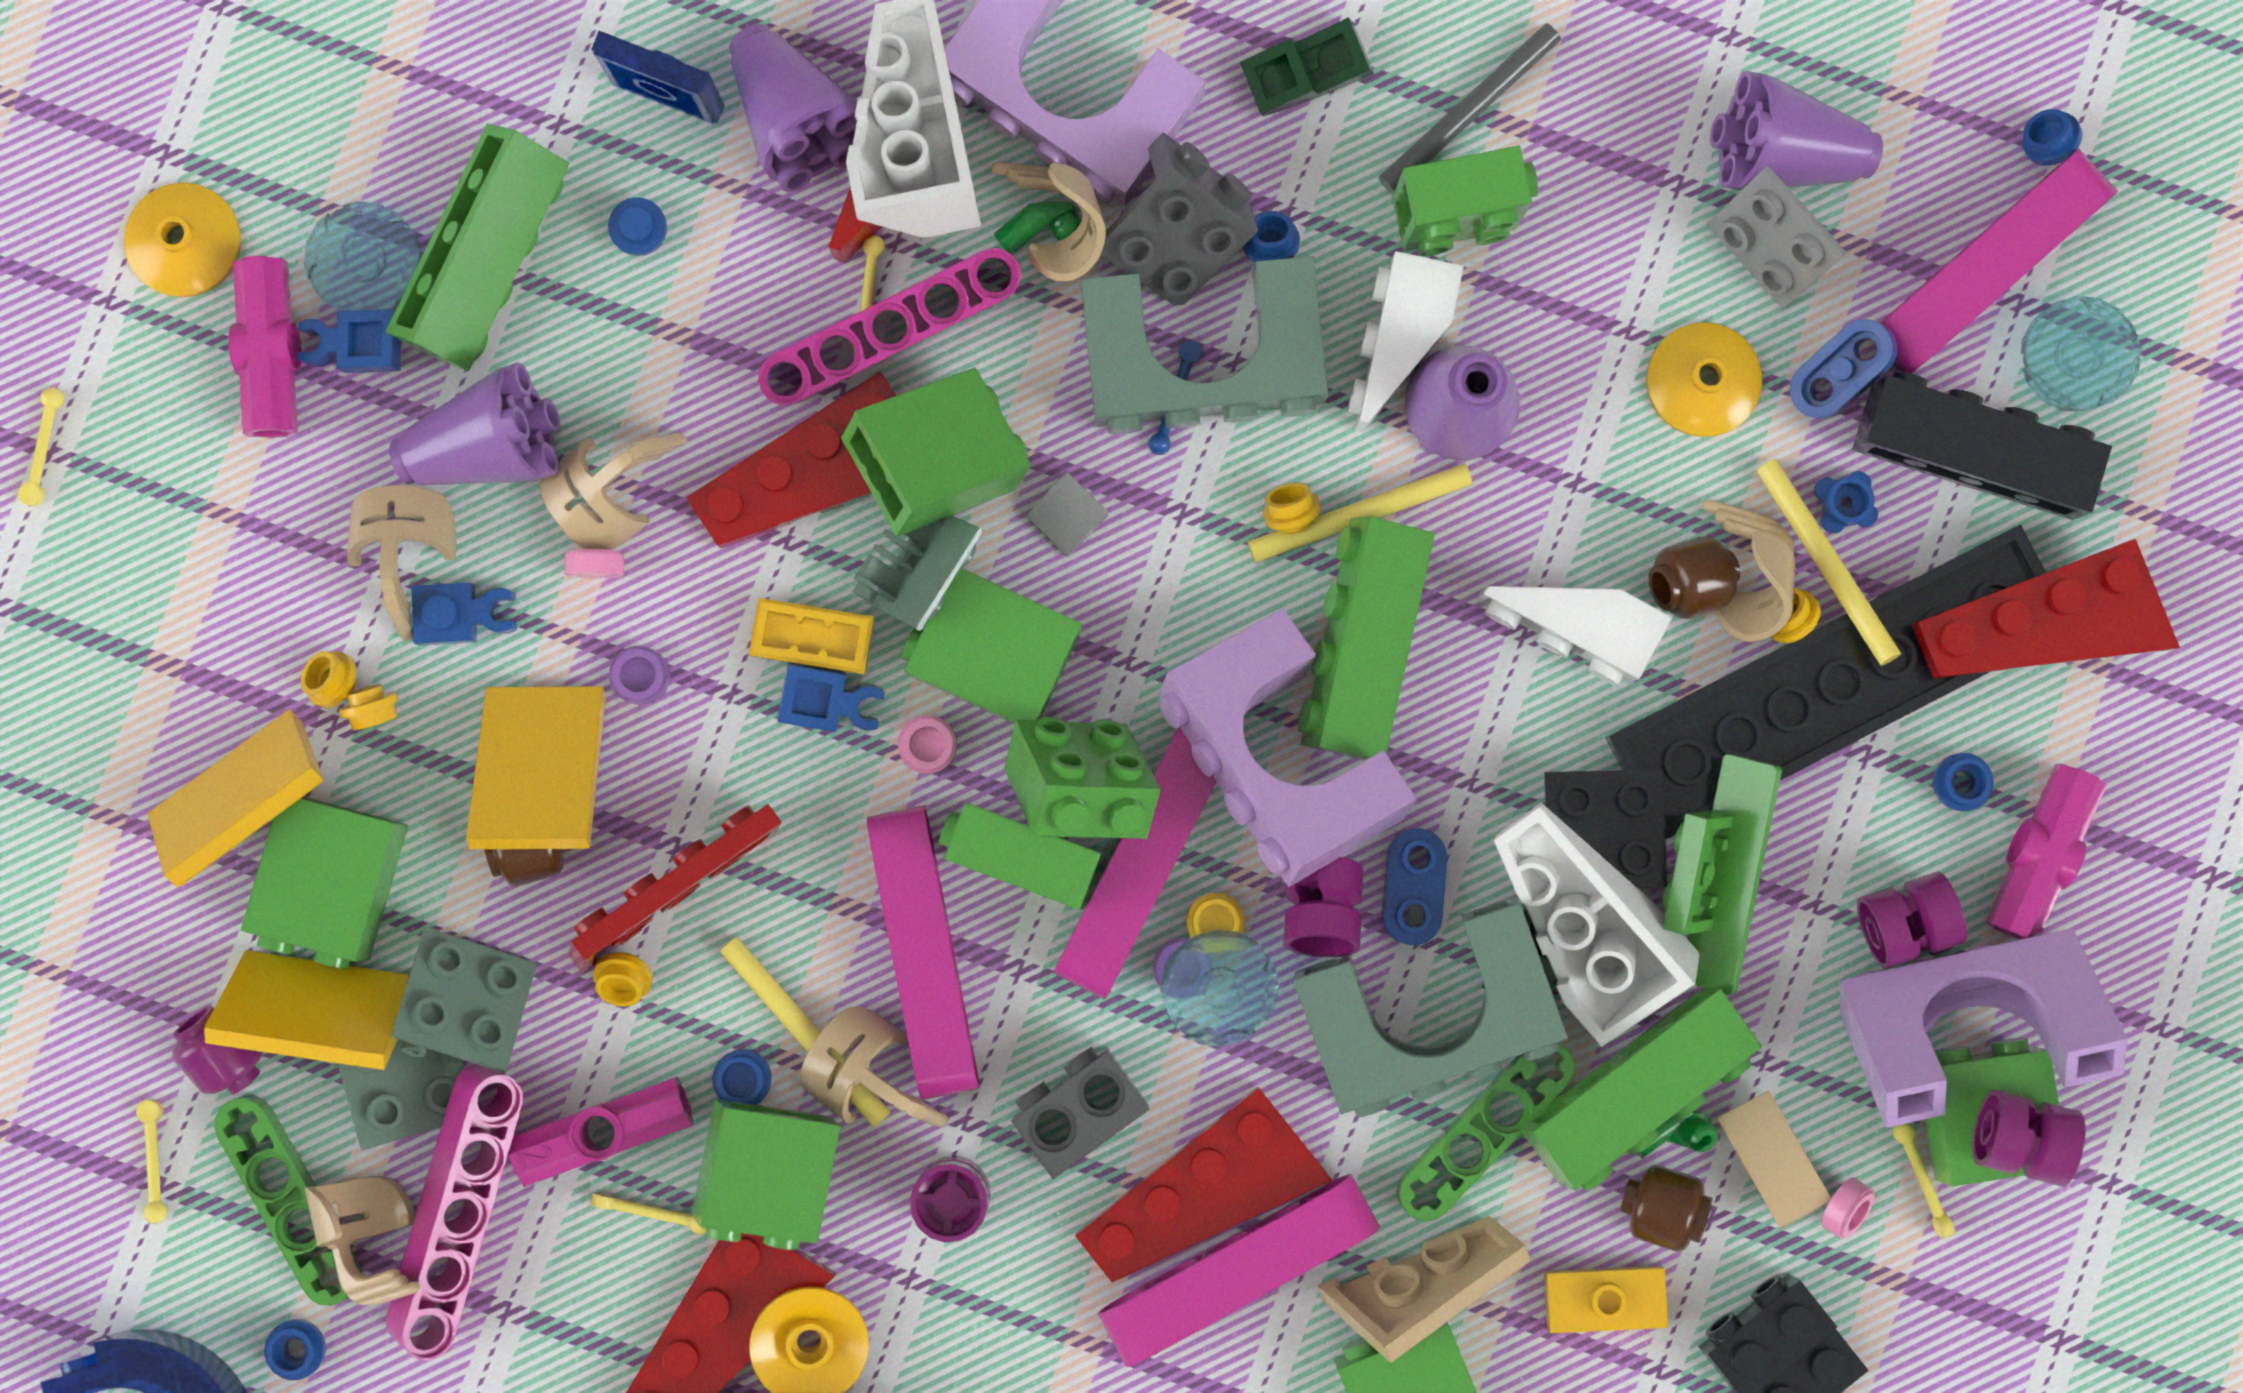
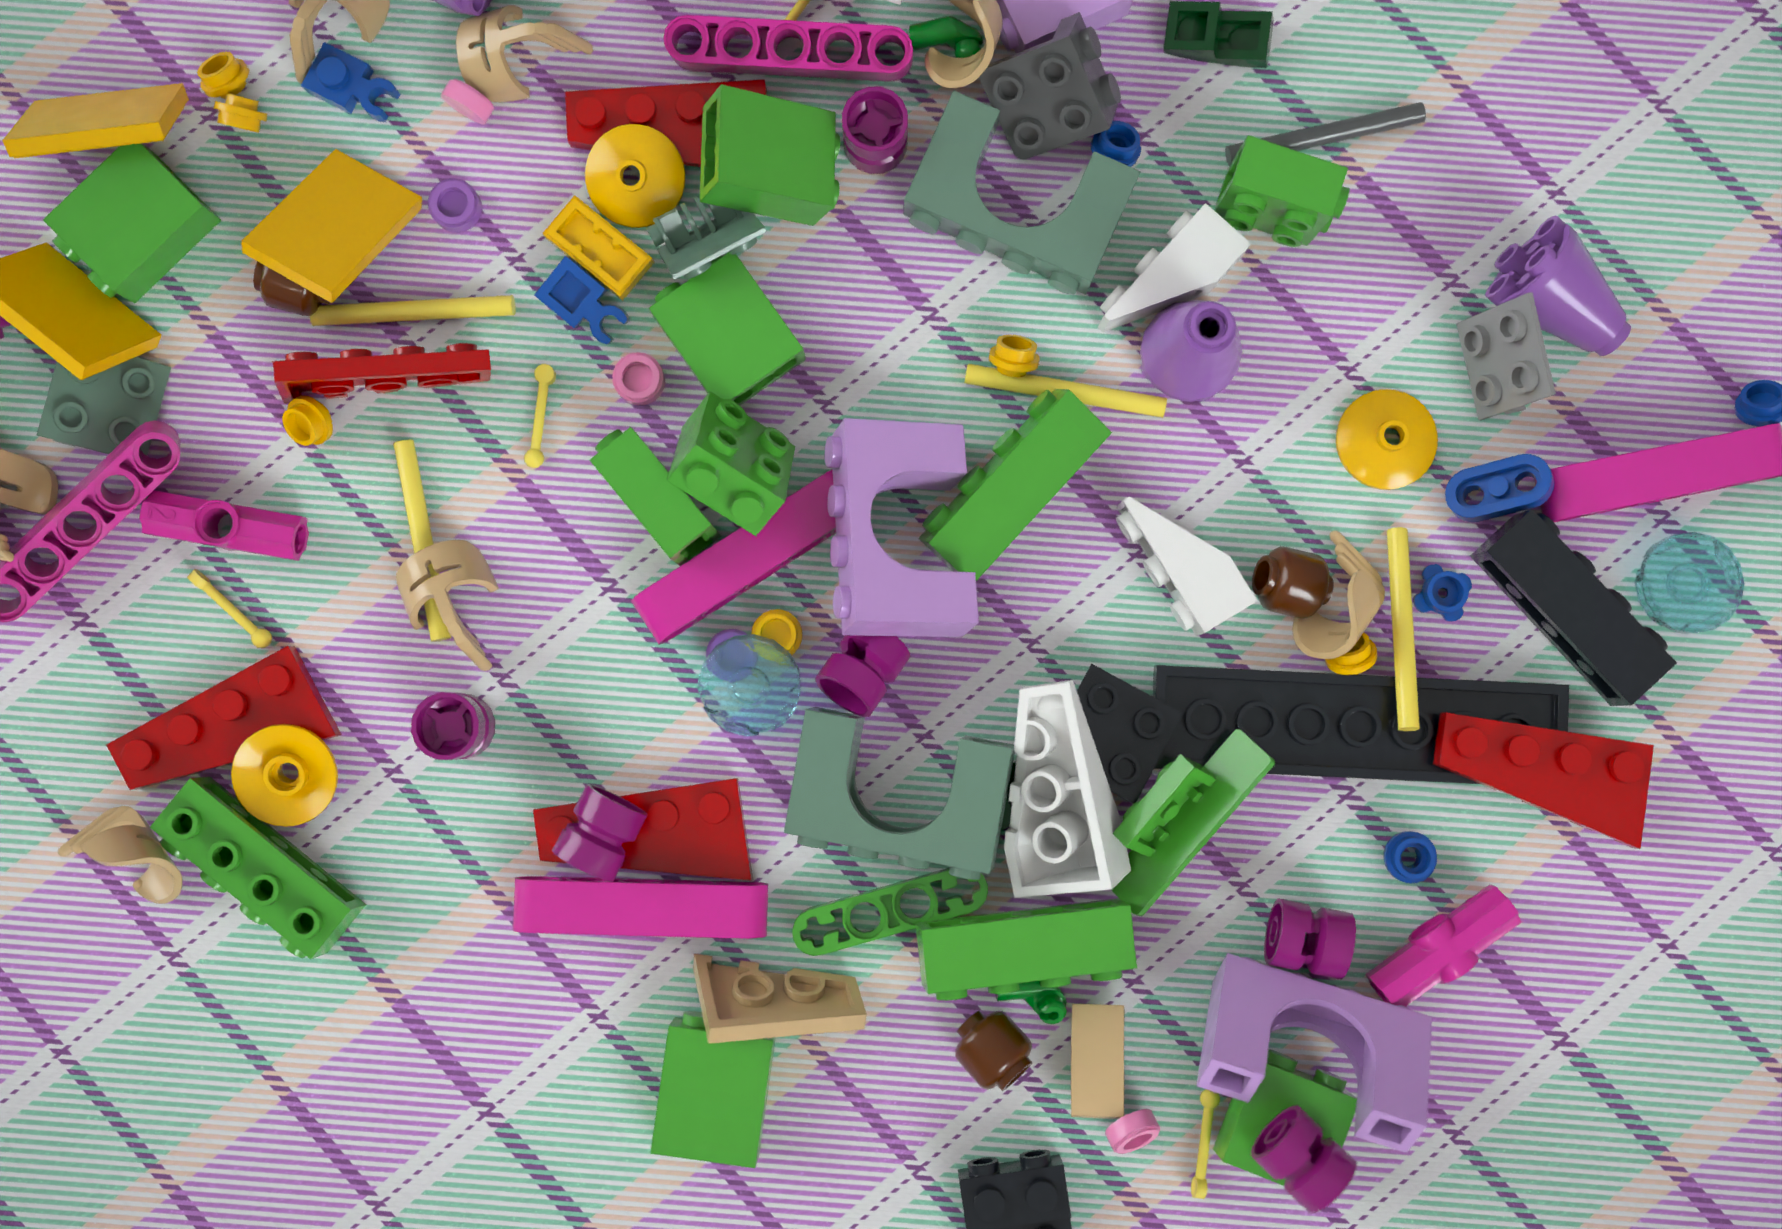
camera: 35 degrees right, 0 degrees up
(463, 1000) = (177, 367): sand green hinge -> none
(663, 804) = (414, 310): none -> light yellow bar
(742, 1077) = (354, 548): blue plate -> none
(765, 1174) = (324, 626): bright green brick -> none
(812, 513) = (660, 175): none -> yellow dish
(831, 795) = (545, 376): none -> light yellow hinge
(922, 952) = (541, 531): dark pink beam -> none
(1024, 362) = (875, 129): none -> magenta wheel
(1067, 514) = (843, 265): light grey slope -> none
(1089, 1123) = (591, 728): dark grey brick -> none
(1162, 1219) = (597, 838): none -> magenta wheel
(1189, 353) = (1006, 200): blue hinge -> none
(1410, 886) = (943, 695): blue plate -> none
(1605, 1299) = (907, 1092): yellow plate -> none

